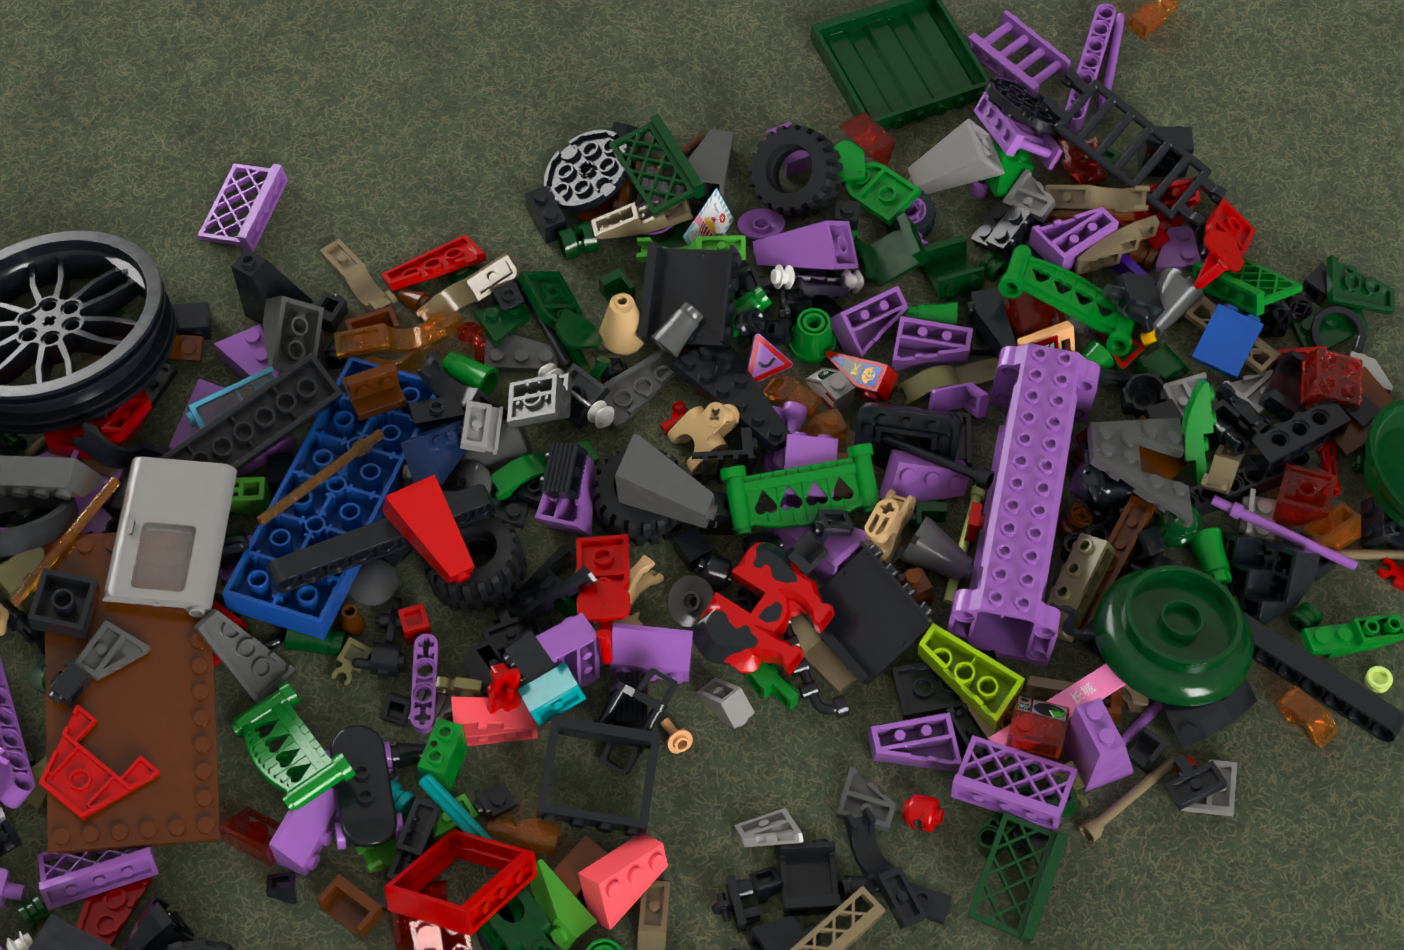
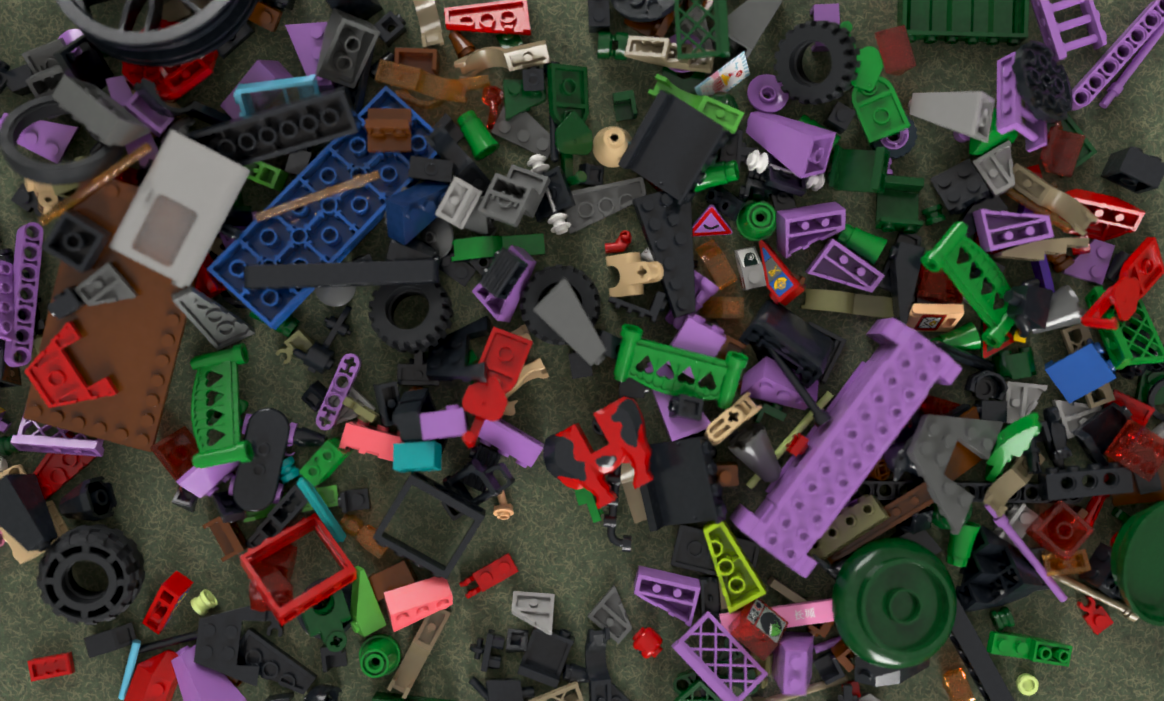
camera: 20 degrees right, 30 degrees up
(343, 862) = (227, 507): none -> black plate
(352, 620) = (312, 314): reddish brown cone -> none
(414, 622) = (351, 338): red panel -> none
(429, 526) = (373, 291): red slope -> none
(503, 688) = (384, 439): red hips -> none
(677, 329) = (650, 175): dark grey plant -> none
(682, 598) = (553, 407): dark grey dish -> none
(697, 819) = (491, 574): none -> red hinge
(715, 570) = (587, 391): black head -> none
(726, 702) = (548, 497): light grey slope -> none
(750, 322) = (710, 193): black wheel -> none
(807, 552) = (655, 424): black panel -> none
(960, 396) = (852, 327): medium lavender bracket -> none
(1156, 721) = (843, 655): none -> reddish brown panel
(1179, 208) = (1065, 115): black bar -> none

